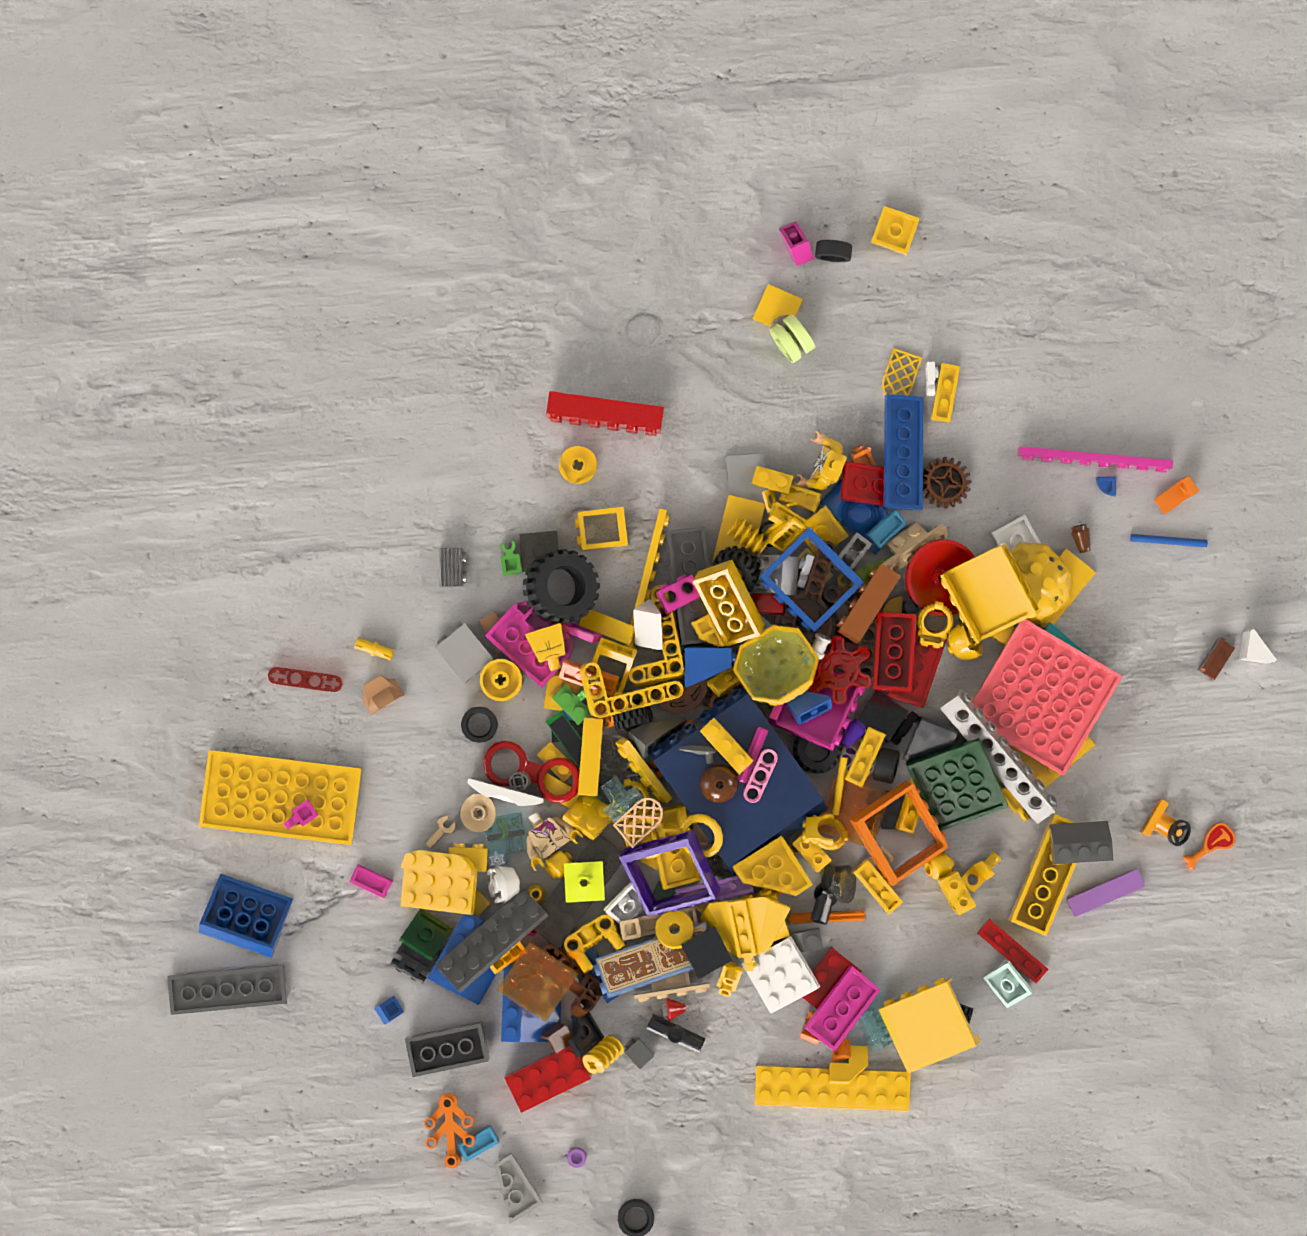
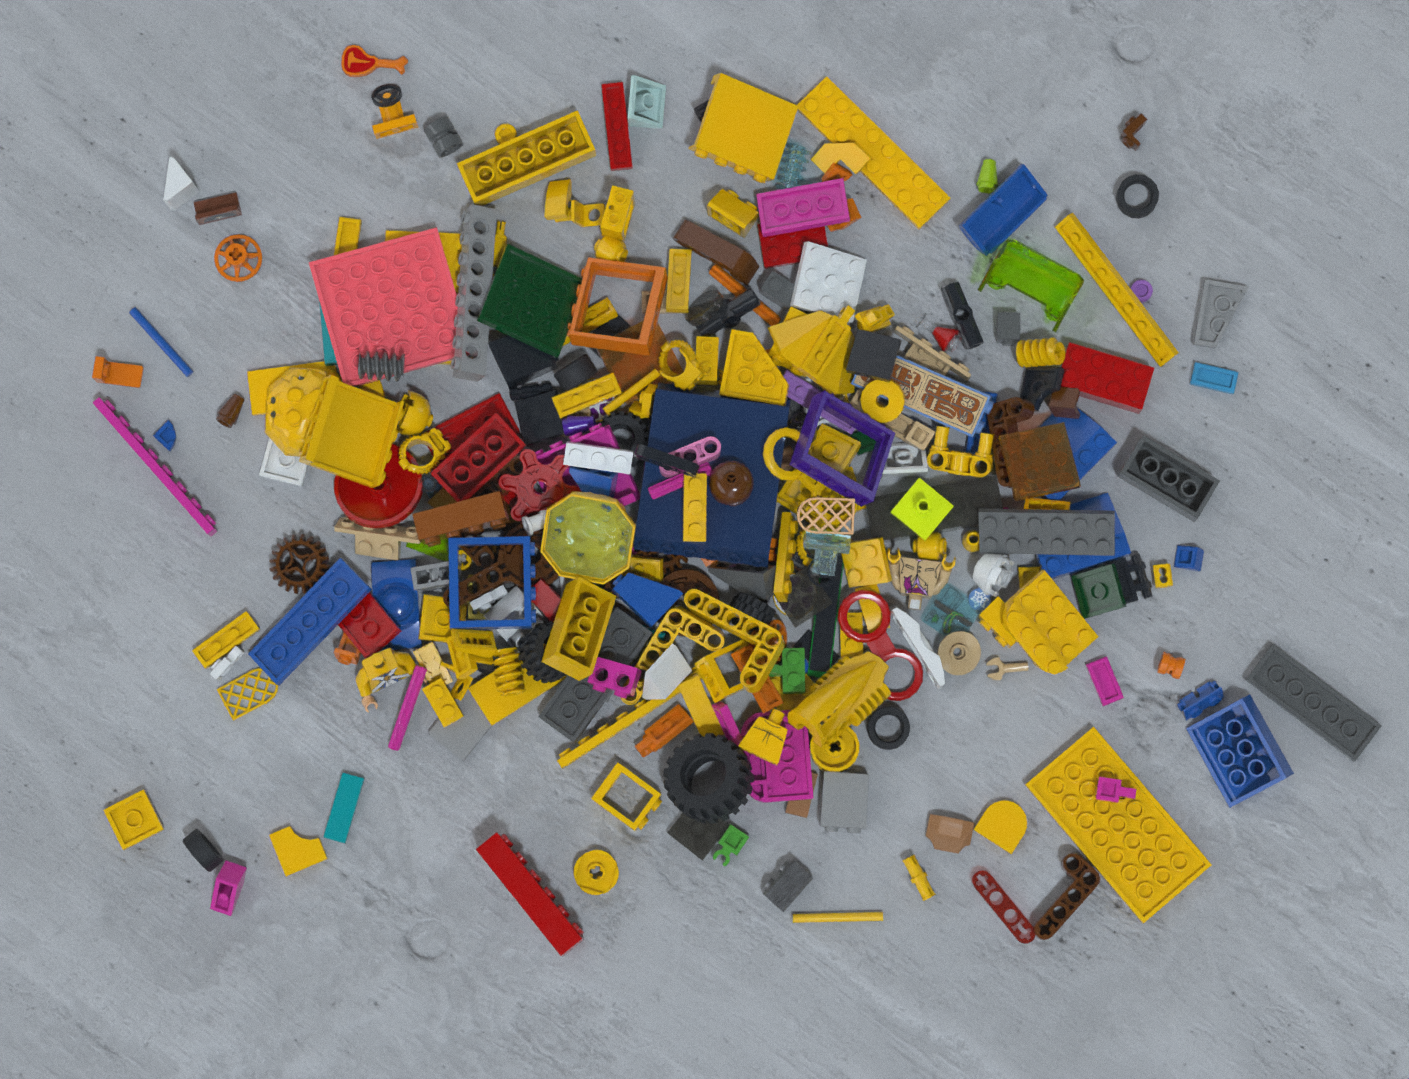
camera: 130 degrees left, 5 degrees down
(271, 717) = (1063, 900): none -> reddish brown beam
(296, 932) = (1209, 694): none -> blue hinge
(337, 930) = (1171, 665): none -> orange wheel
(352, 731) = (1003, 825): none -> yellow tile
(392, 986) = (1168, 575): none -> yellow piece
(402, 577) = (837, 917): none -> yellow bar
(450, 1127) = (1226, 412): orange plant -> none
(523, 781) = (894, 645): dark grey wheel -> none
(524, 716) = (850, 689): none -> yellow connector
(590, 757) = (818, 609): yellow tile -> none
(593, 1143) = (1116, 289): none -> yellow plate
(618, 592) = (664, 730): none -> orange hinge
(650, 1103) = (1034, 277): none -> clear neon green windscreen
(698, 749) = (721, 526): dark grey bar -> none
(707, 631) = (619, 623): yellow tile -> none
(711, 1127) = (1003, 211): none -> blue container
(742, 1139) = (987, 179): none -> lime cone
(771, 757) = (666, 460): none -> black beam
(772, 359) = (344, 808): none -> teal tile
(791, 456) = (407, 707): none -> dark pink axle
(792, 338) = (310, 807): yellowish green wheel -> none
(818, 722) = (598, 457): none -> white plate
(822, 784) = (644, 407): none -> yellow bracket
(871, 928) = (717, 250): none -> reddish brown beam
(884, 964) = (732, 212): none -> yellow slope
(886, 528) = (386, 571): dark azure tile -> none
(1004, 866) = (557, 199): none -> yellow slope
(1011, 652) = (381, 366): none -> dark grey piece
(1079, 879) = (505, 133): none -> yellow tile
(1081, 842) = (475, 158): dark grey slope -> none
(1105, 892) = (494, 103): medium lavender tile -> none
(1116, 718) = (347, 235): none -> yellow tile
(1121, 839) = (442, 135): none -> dark grey wheel
(1172, 639) = (237, 257): none -> orange wheel

